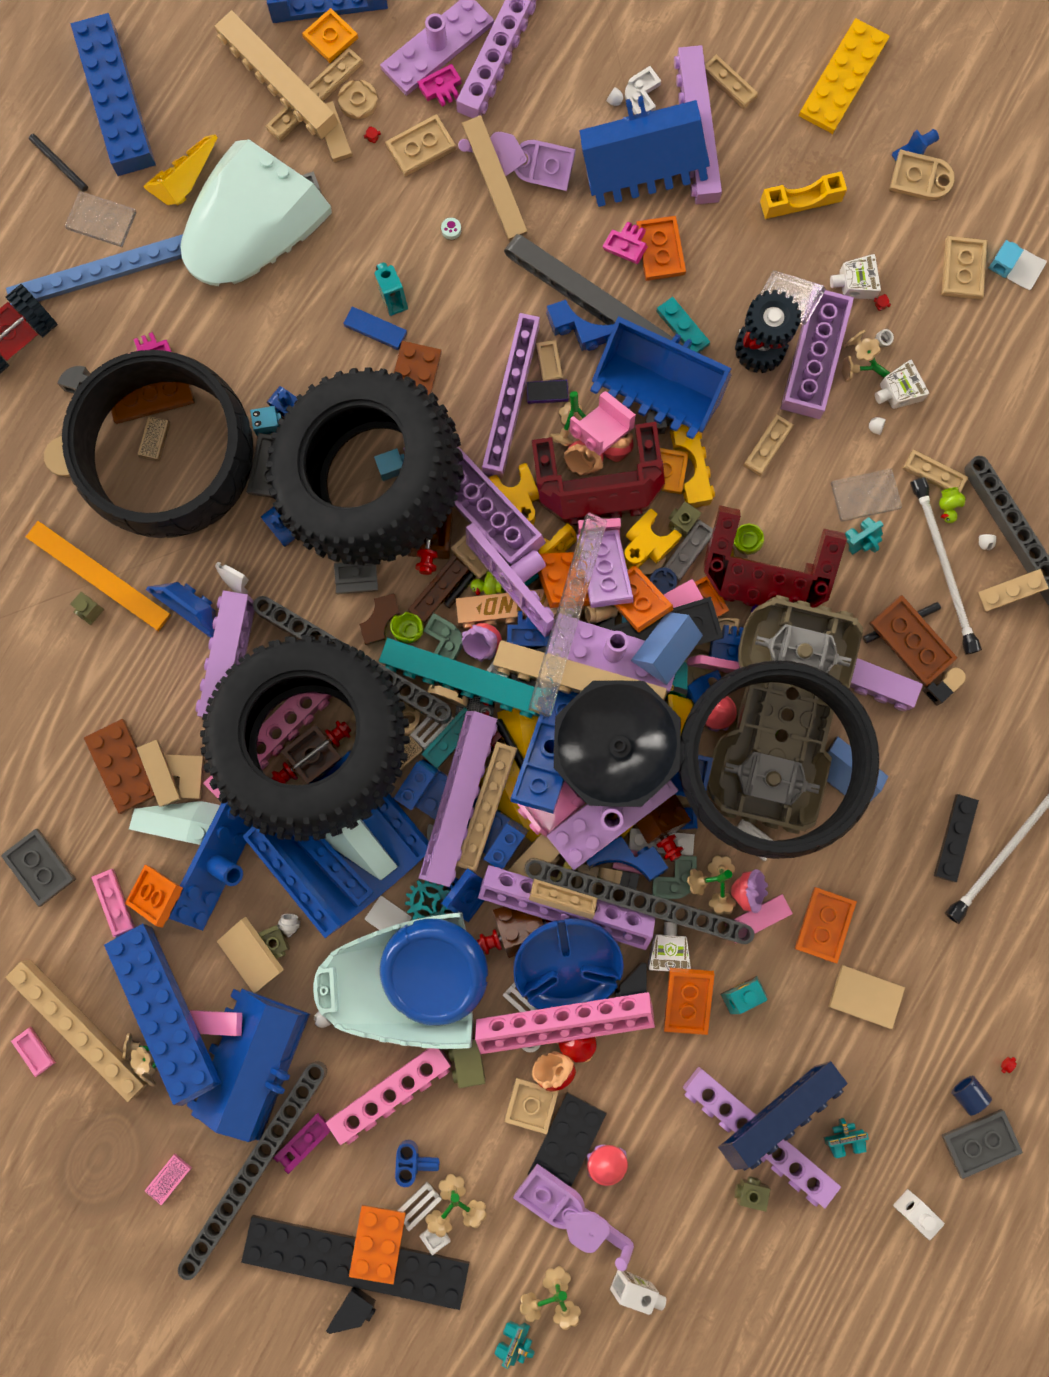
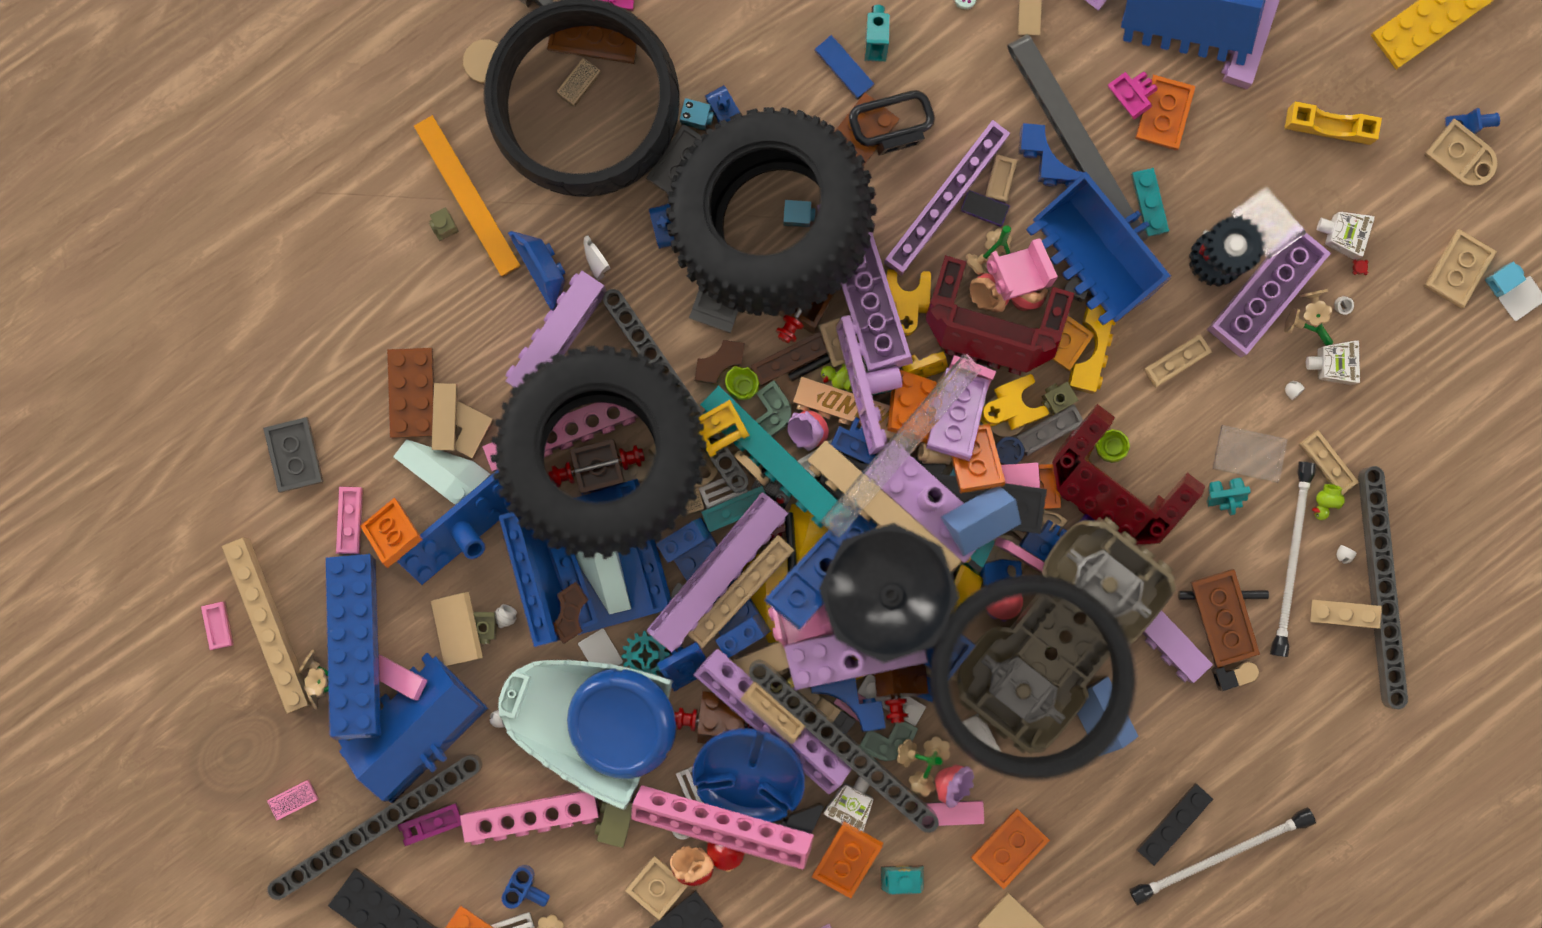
camera: 20 degrees right, 5 degrees up
(346, 903) = (568, 623): none -> reddish brown tile
(399, 667) = (719, 420): none -> yellow plate
(447, 366) = (897, 139): none -> black bar

